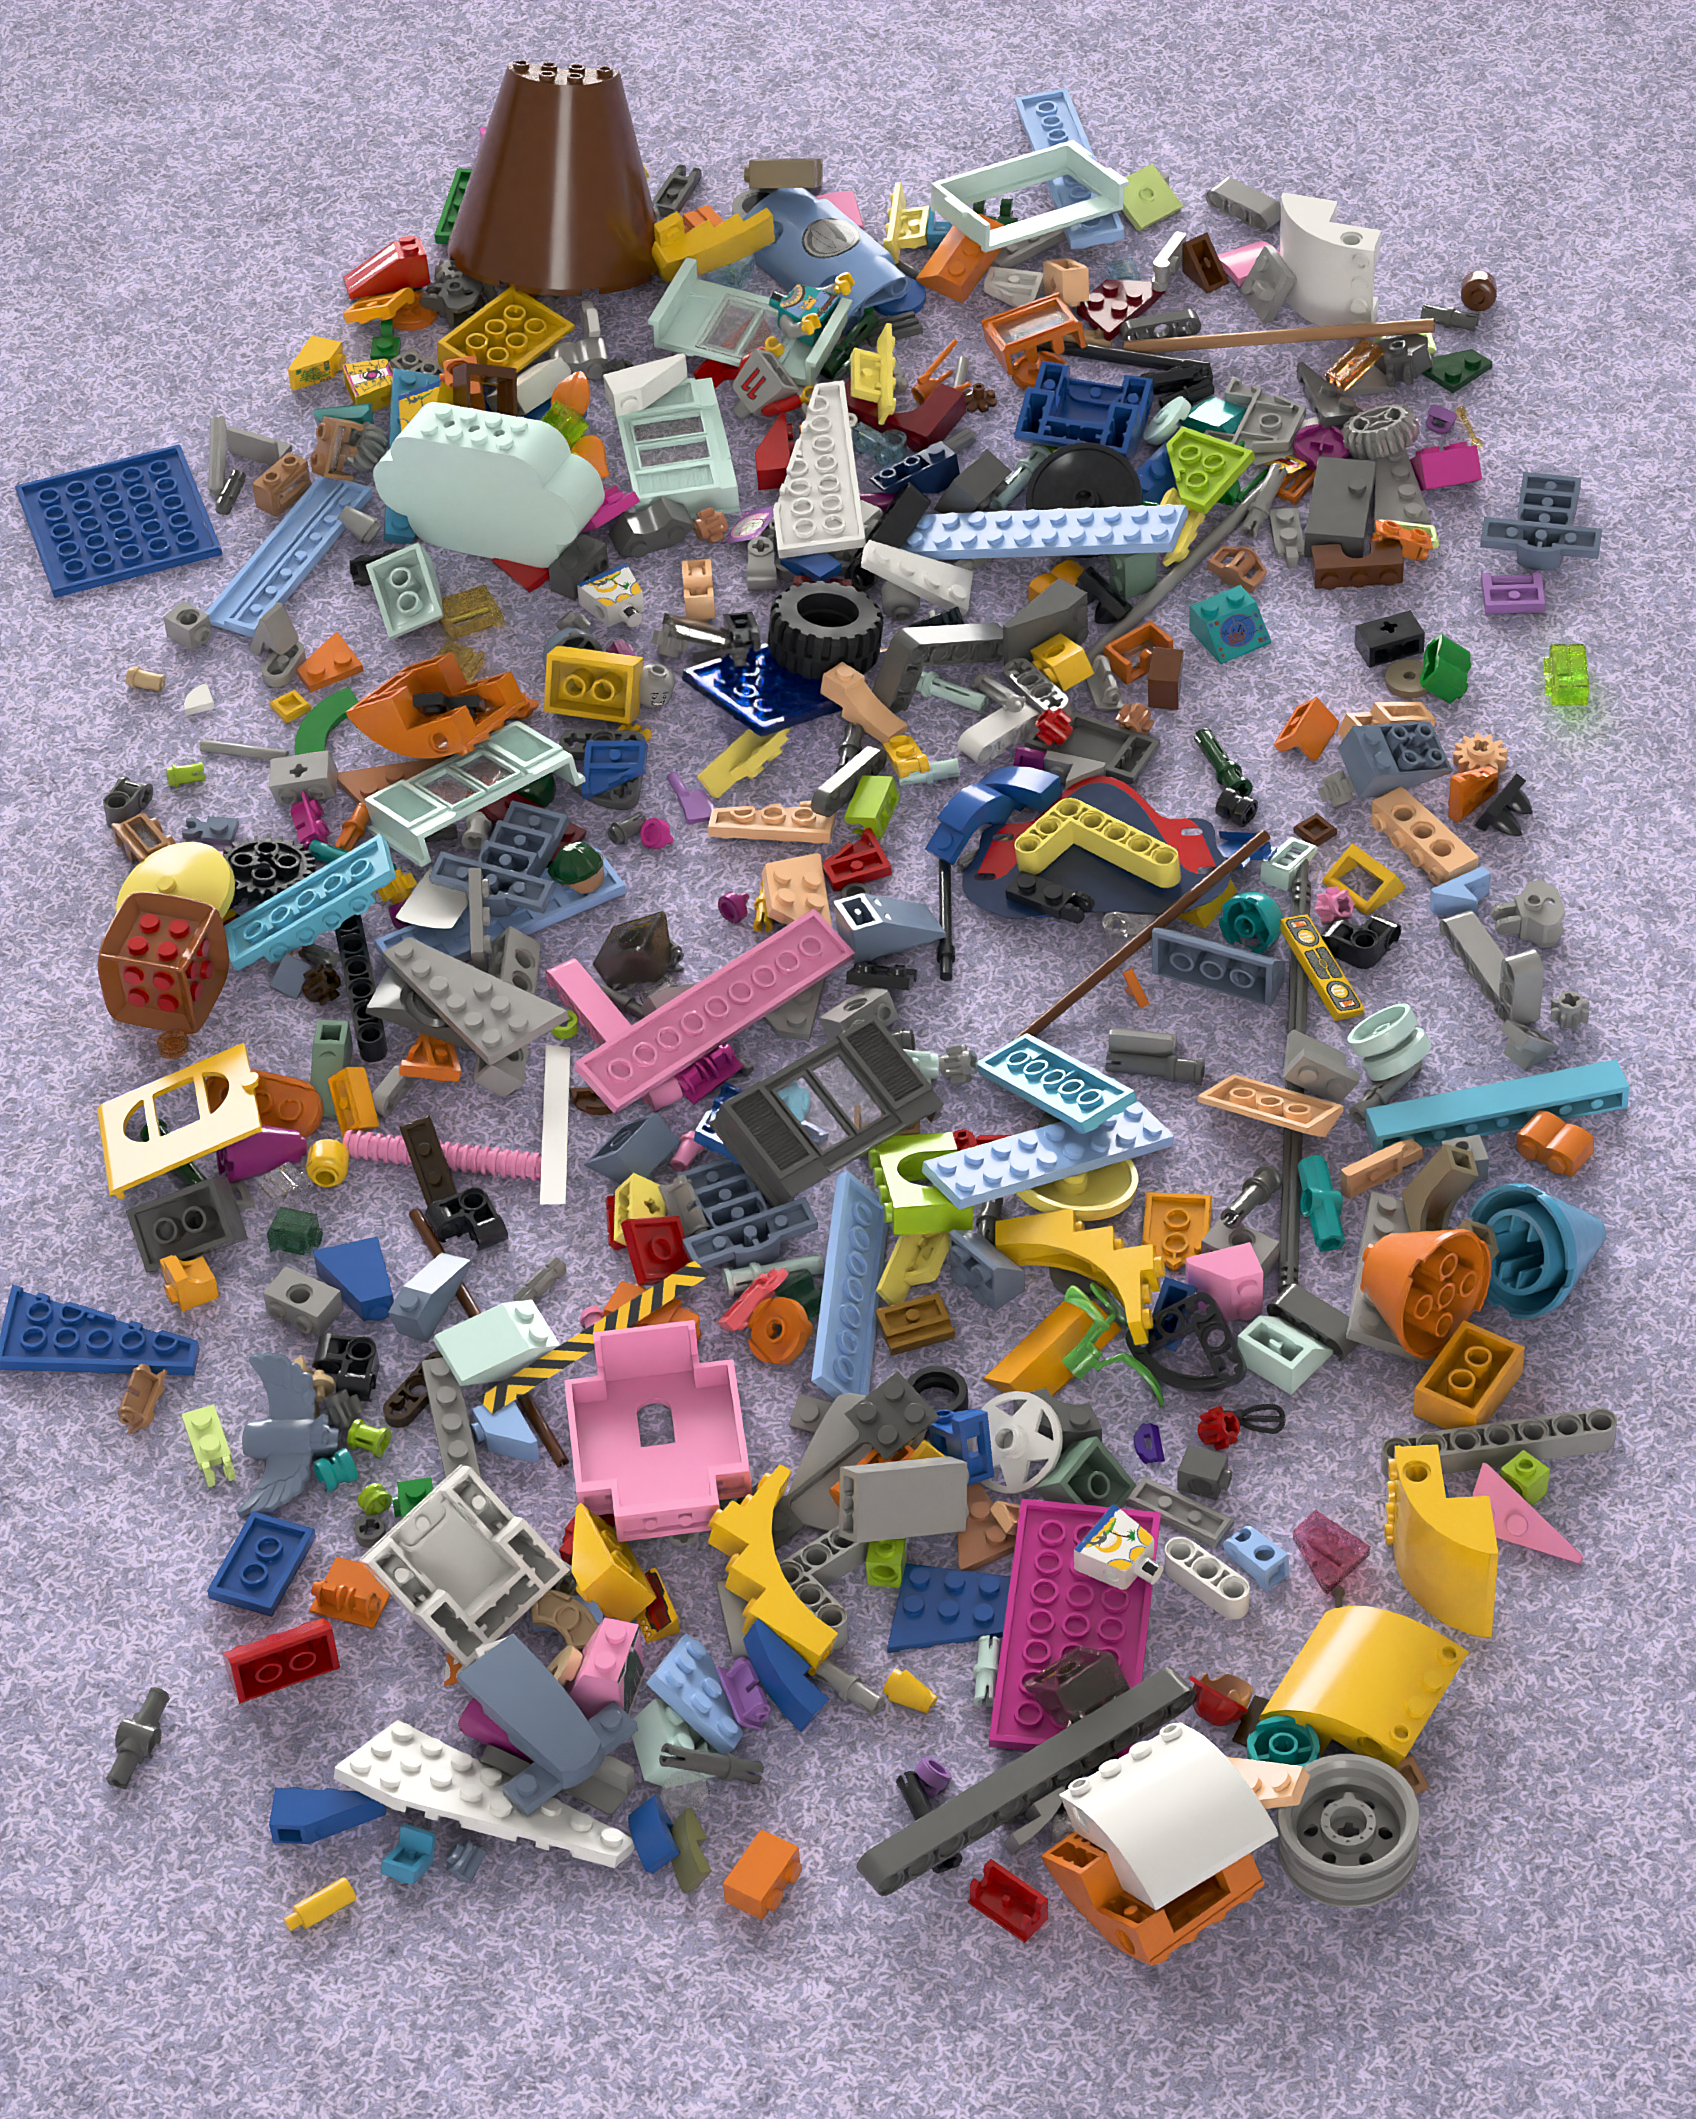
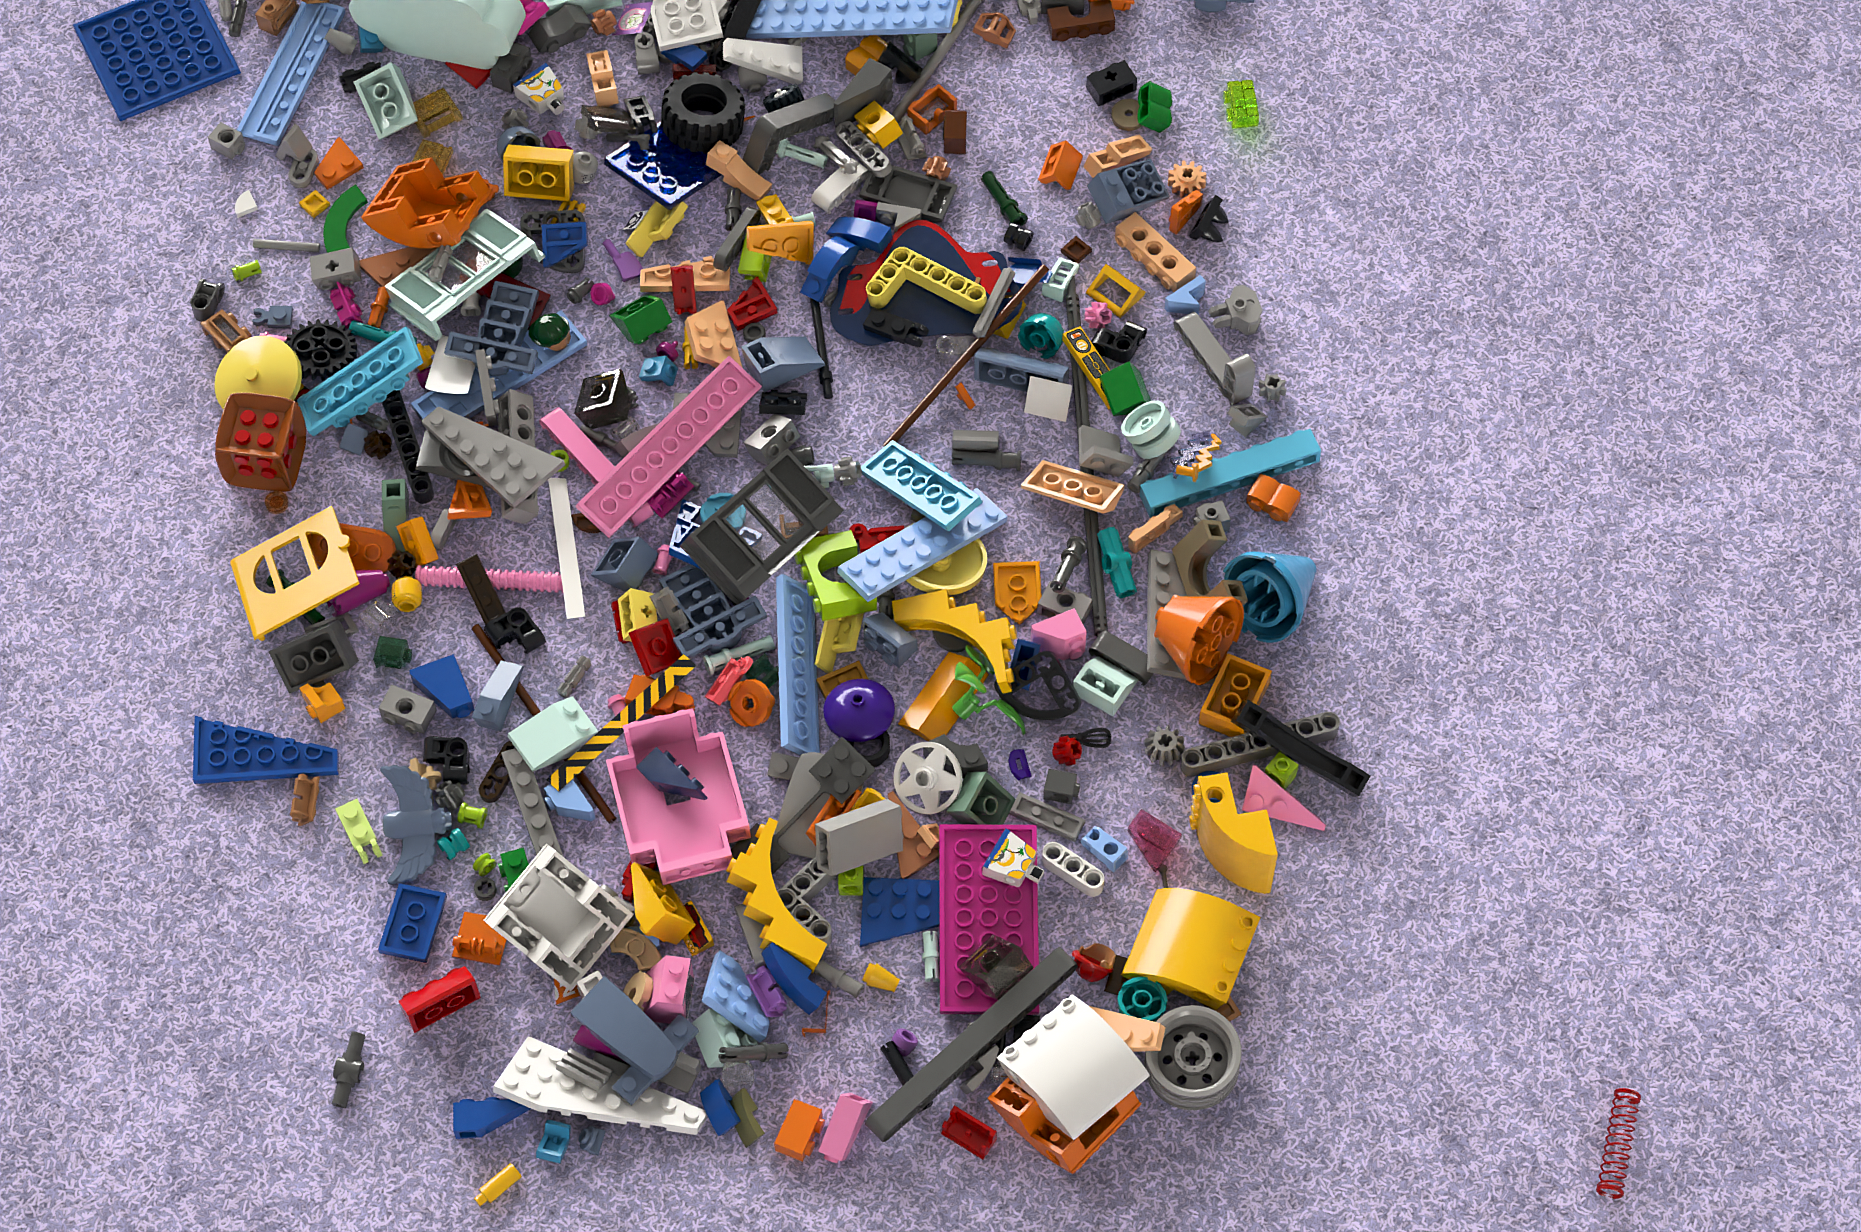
camera: 10 degrees left, 15 degrees up
(143, 679) = (201, 190): tan pin -> none
(327, 1124) = (401, 564): none -> dark brown gear
(438, 702) = (428, 206): black plate -> none
(441, 773) = (440, 263): none -> light grey axle
(467, 1763) = (586, 1067): none -> light grey tile
(648, 1407) = (668, 777): none -> dark blue slope
(706, 865) = (642, 318): none -> green slope
(715, 752) = (635, 220): none -> sticker
(720, 925) = (658, 369): none -> dark azure bracket
(766, 831) = (683, 289): none -> red hinge
(808, 1751) = (811, 1030): none -> orange piece
(826, 1874) = (844, 1126): none -> bright pink slope
(911, 782) = (784, 240): none -> light orange wing
(930, 1350) = (859, 720): none -> dark purple dish
(950, 1438) = (886, 778): blue tile -> none
(1053, 726) = (880, 183): red gear -> none
(1189, 873) = (993, 302): none -> light grey axle
(1228, 624) = (994, 80): teal slope -> none
(1250, 997) = (1048, 398): none -> white sticker
(1358, 991) = (1124, 389): none -> green slope
(1359, 1434) = (1156, 748): none -> light grey gear
(1458, 1077) = (1180, 464): none -> piece
(1513, 593) = (1196, 39): medium lavender plate -> none
(1594, 1477) = (1299, 749): none -> black arch

